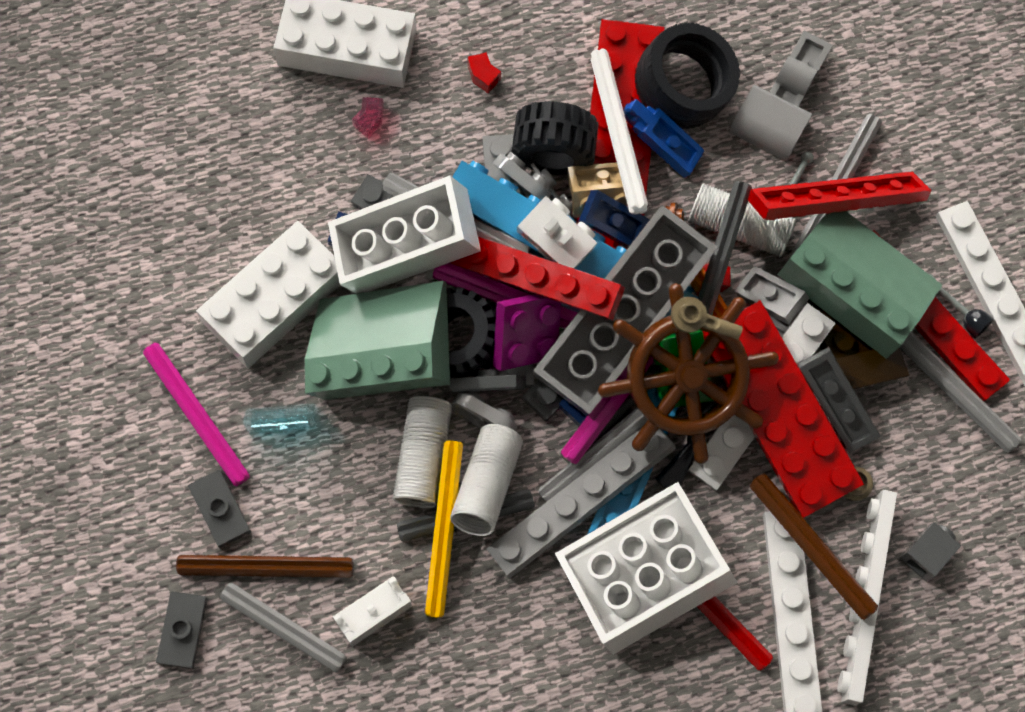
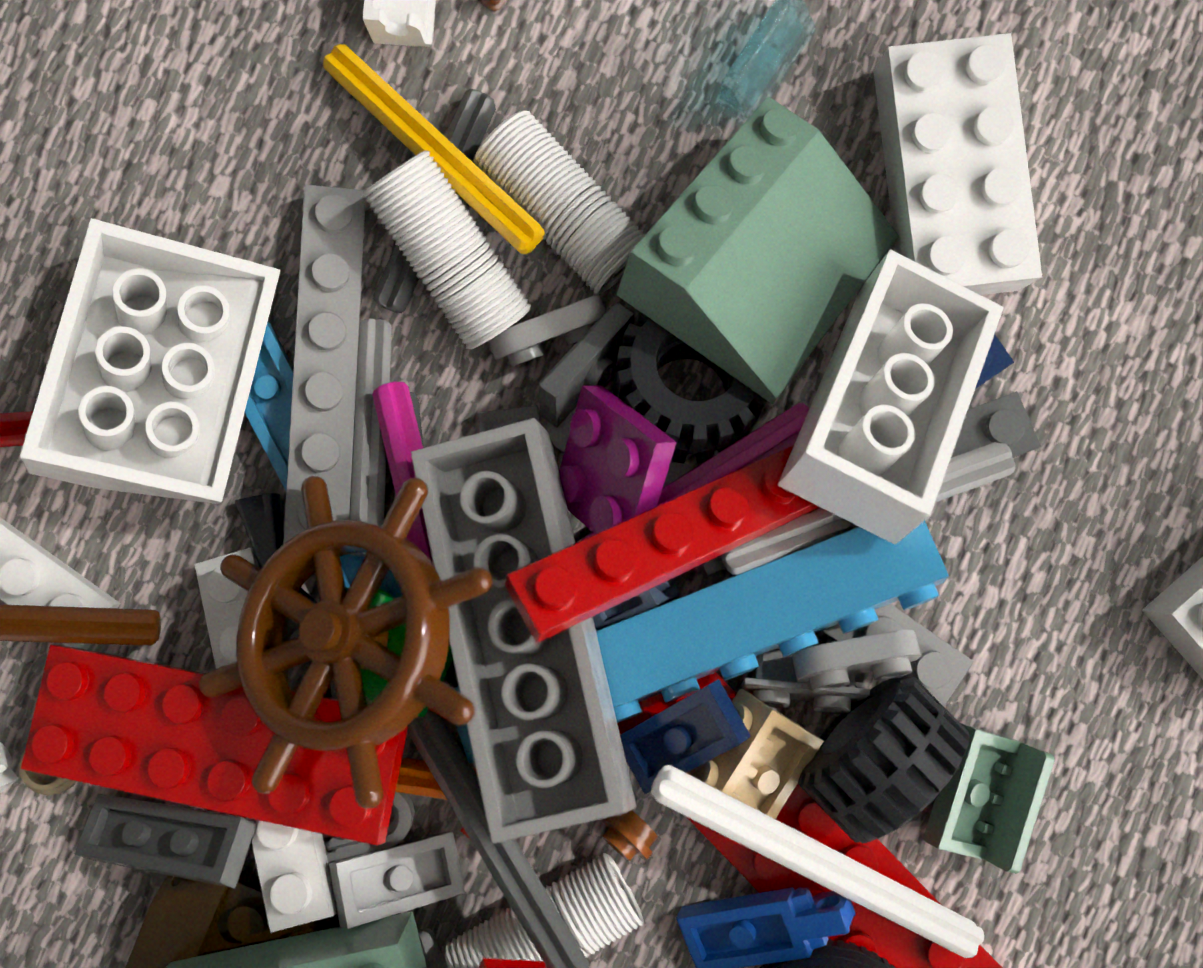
camera: 130 degrees right, 15 degrees up
(370, 117) = (1131, 522): clear pink piece -> none
(482, 72) = (1078, 744): red piece -> none
(532, 84) = (991, 800): none -> sand green bracket
(556, 234) = (713, 622): white brick -> none
(691, 315) = (394, 696): dark tan plate -> none

